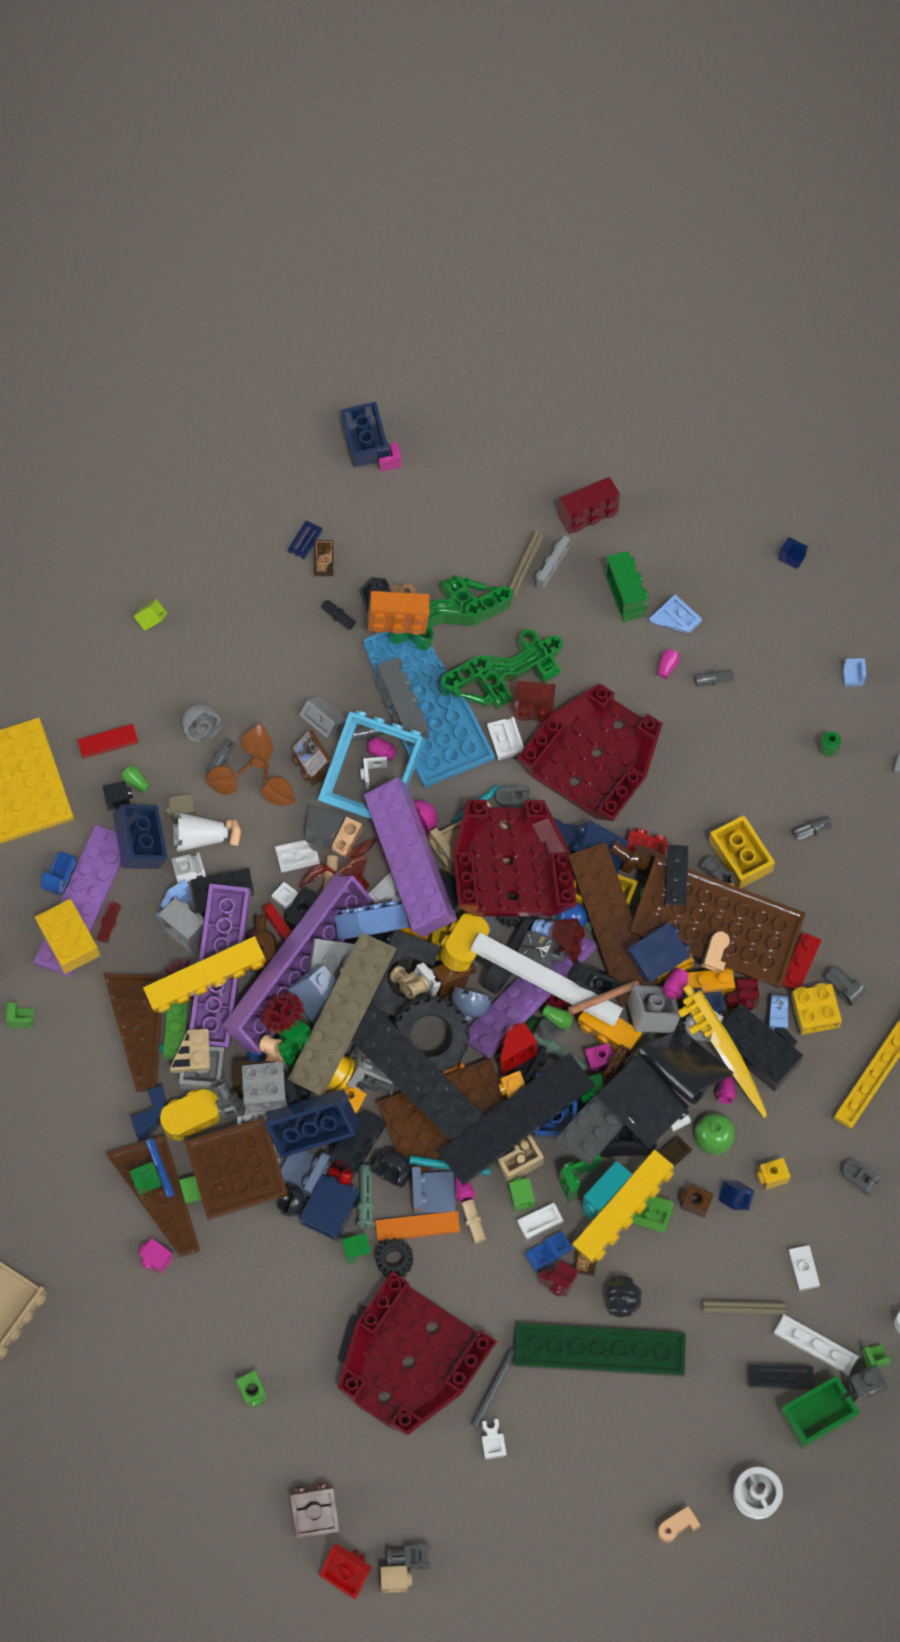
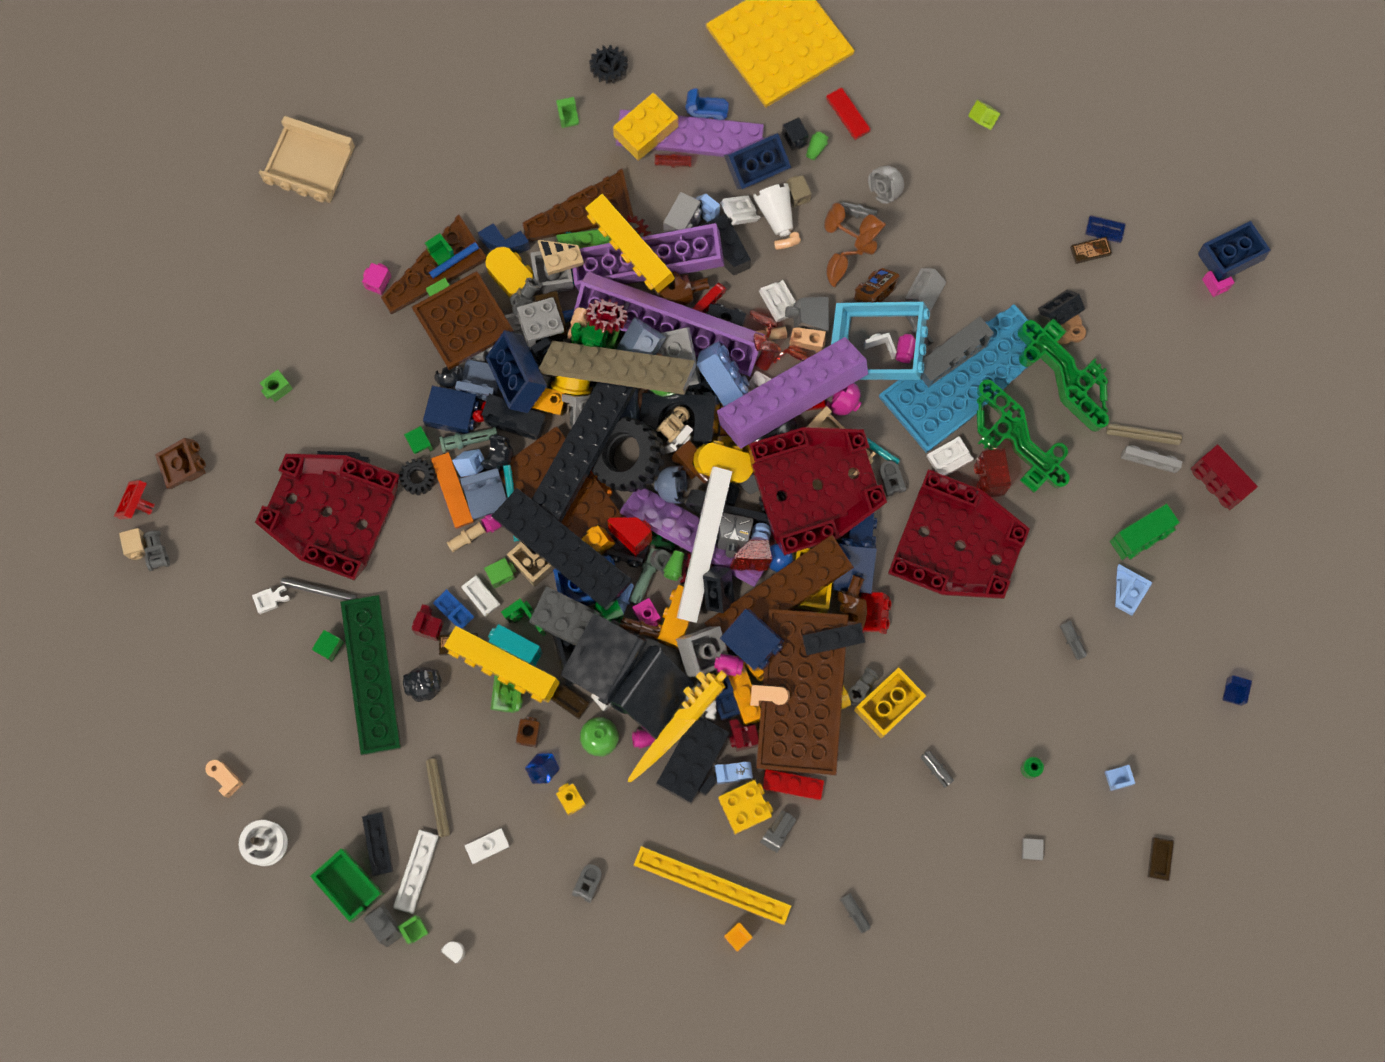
camera: 75 degrees right, 10 degrees up
(284, 895) = (736, 299): white plate -> none
(338, 614) = (1034, 277): black axle -> none
(393, 1201) = (469, 463): none -> light blue panel
(398, 612) = (1039, 320): orange brick -> none
(559, 1386) = (327, 645): none -> green panel
(602, 998) = (699, 600): nougat bar -> none
(668, 662) = (1075, 592): dark pink cone -> none

